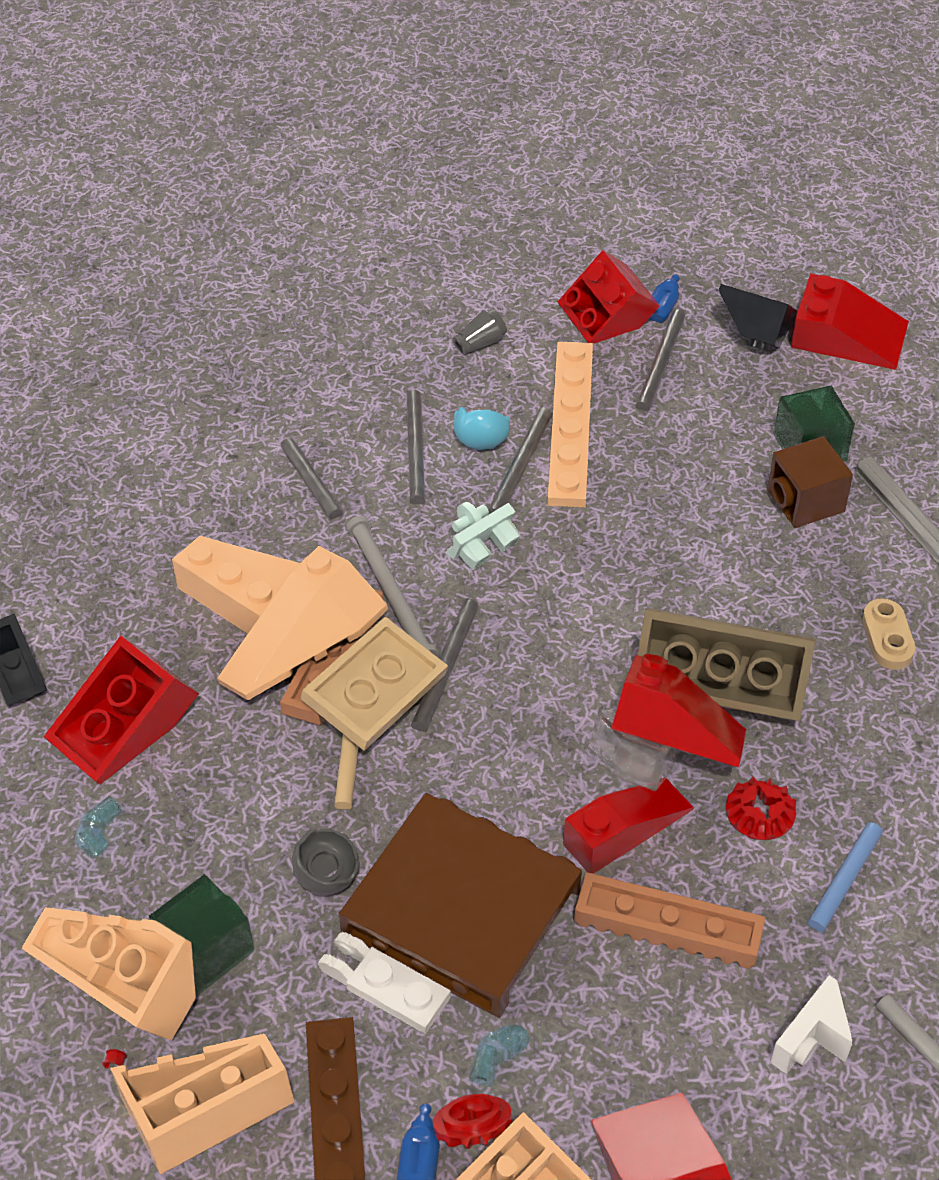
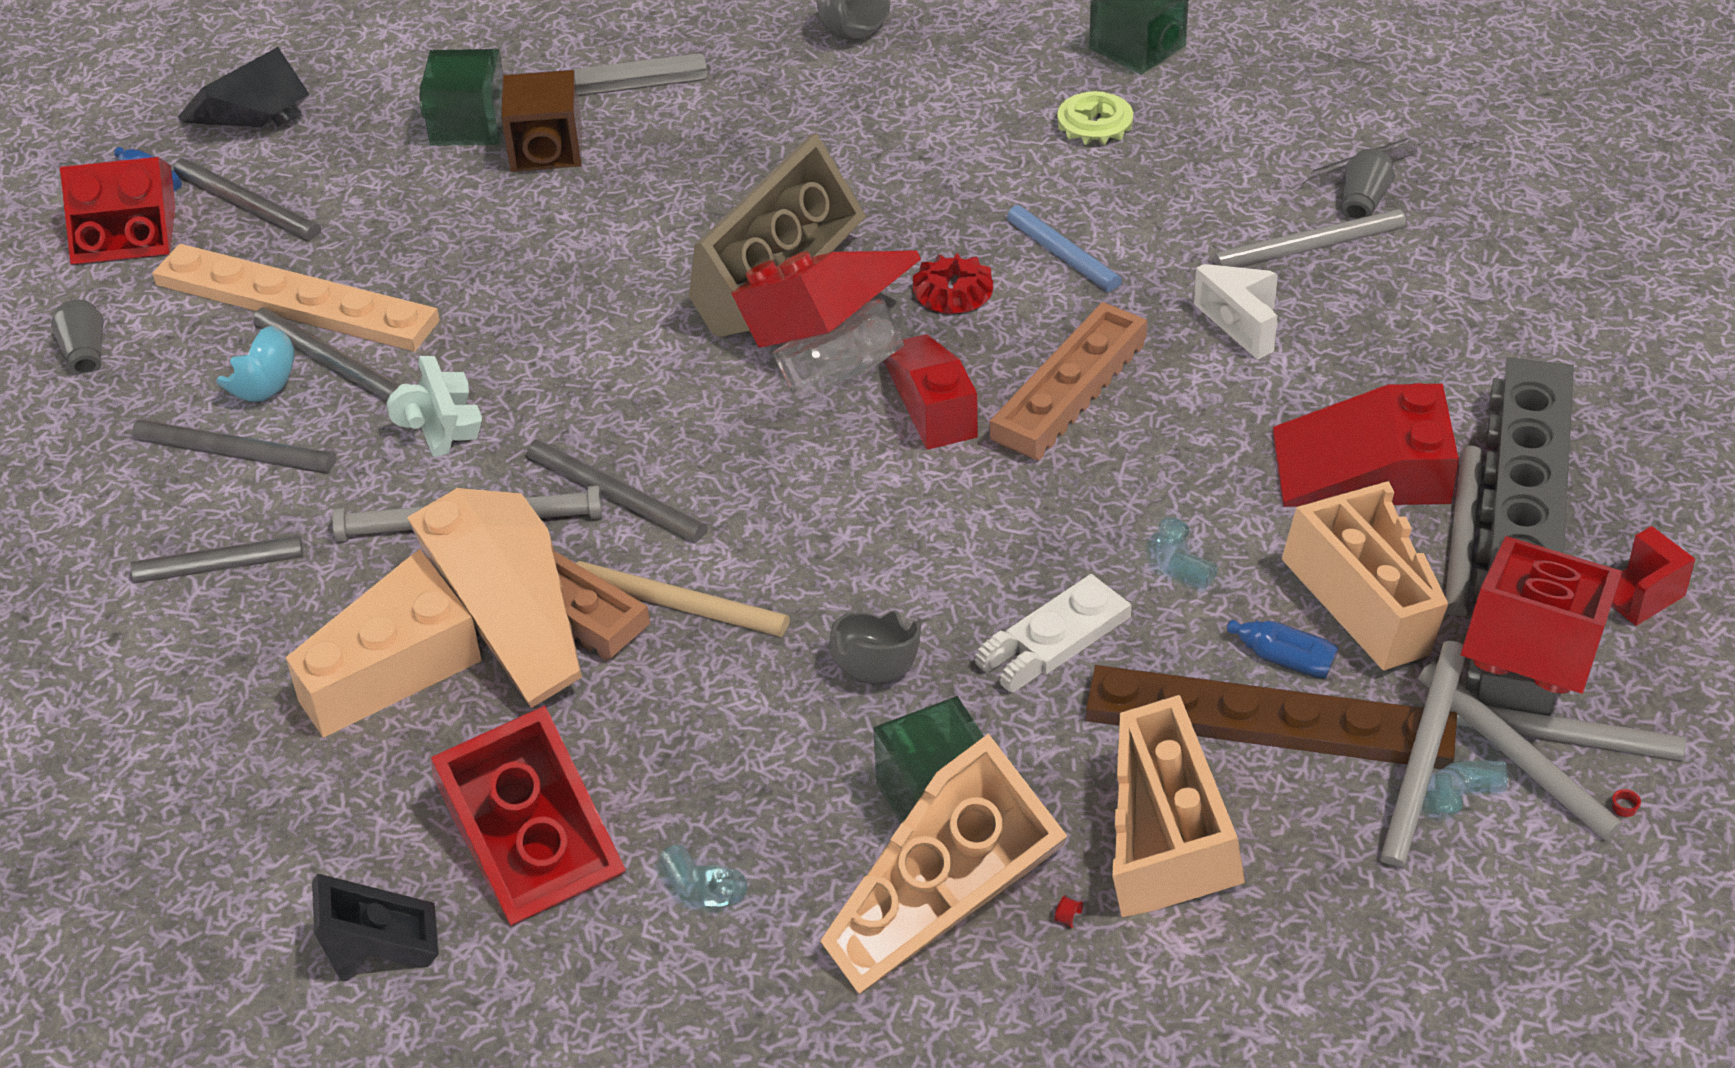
camera: 70 degrees left, 5 degrees down
(374, 683) = (634, 537): tan plate -> none
(460, 901) = (984, 532): reddish brown panel -> none
(472, 1120) = (1248, 586): red gear -> none
(847, 324) = (313, 36): red slope -> none
(887, 630) = (768, 134): tan plate -> none

